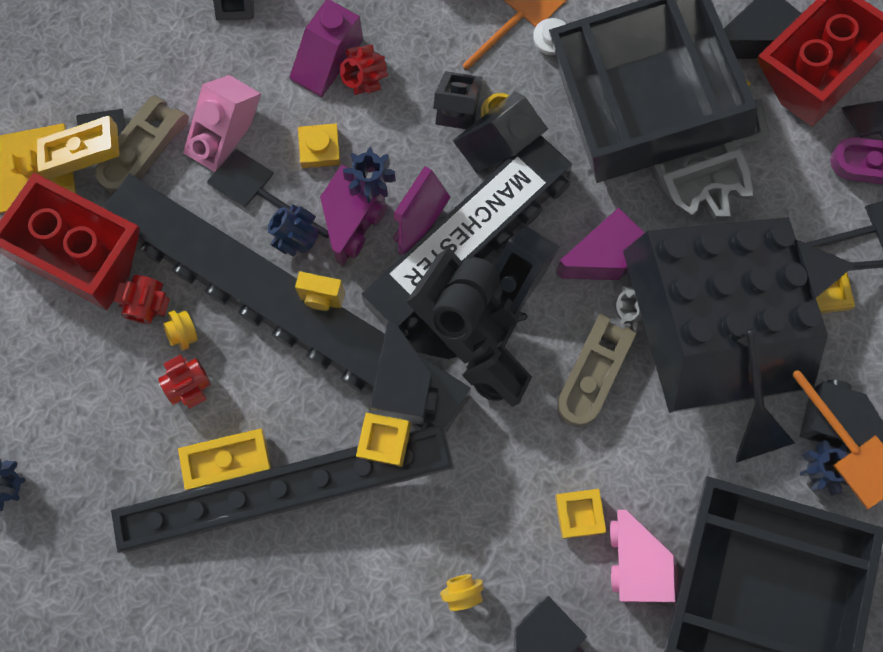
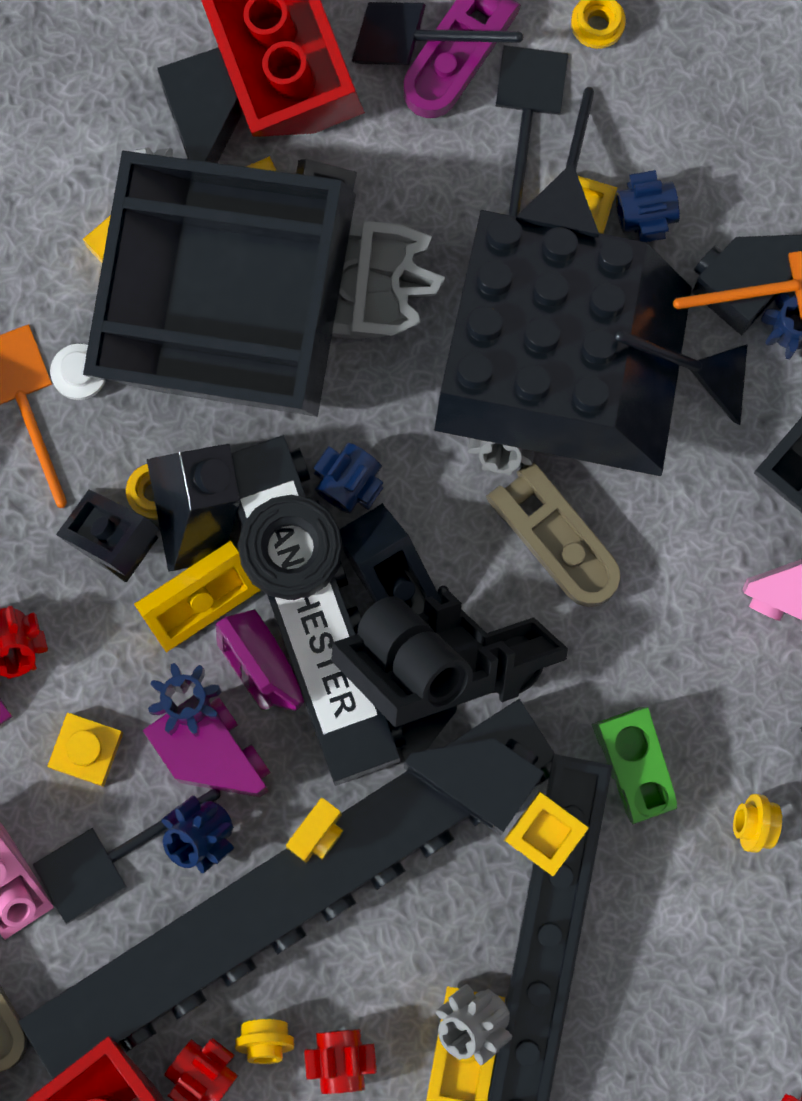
camera: 70 degrees left, 5 degrees up
(238, 451) = (473, 1024): none -> light grey gear
(454, 168) = (196, 597): none -> yellow plate
(464, 490) = (638, 764): none -> bright green leg
(504, 173) = (284, 512): none -> black tyre
(566, 219) = (348, 478): none -> dark blue gear
(580, 513) = (724, 639): yellow plate -> none
(601, 252) = (410, 446): magenta slope -> none
(853, 329) = (647, 206): none -> dark blue gear

